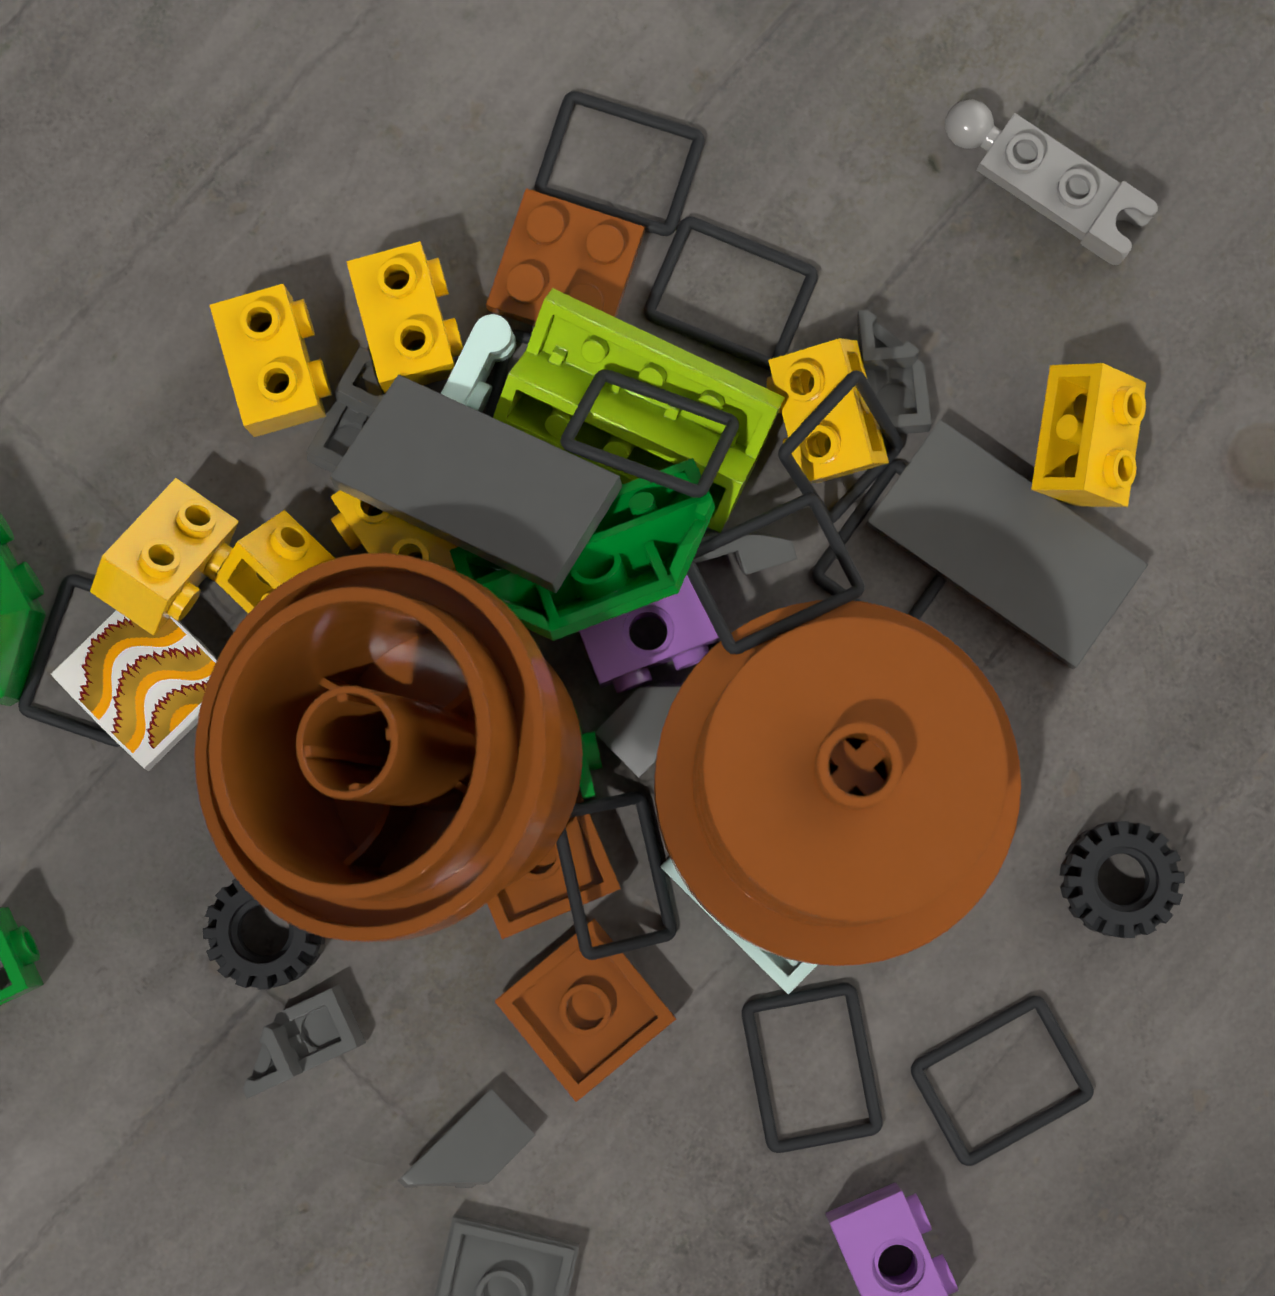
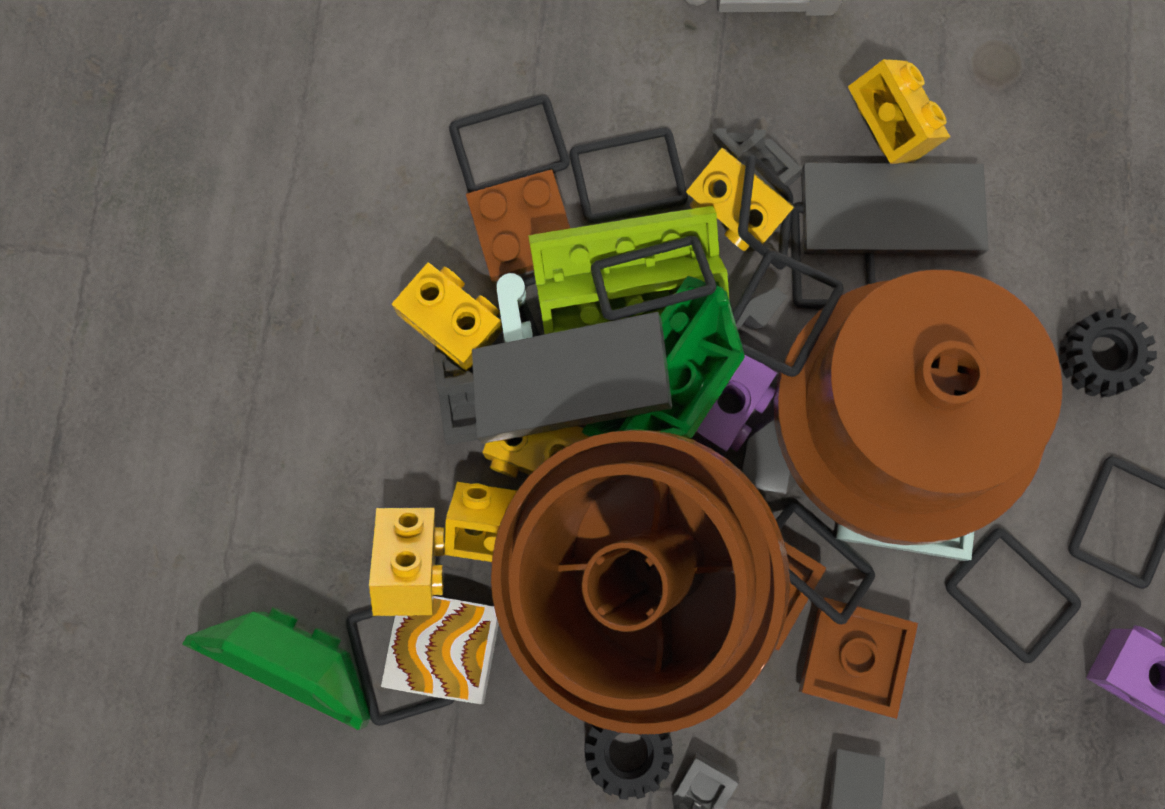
camera: 40 degrees left, 5 degrees down
(271, 359) = (384, 396): yellow brick -> none

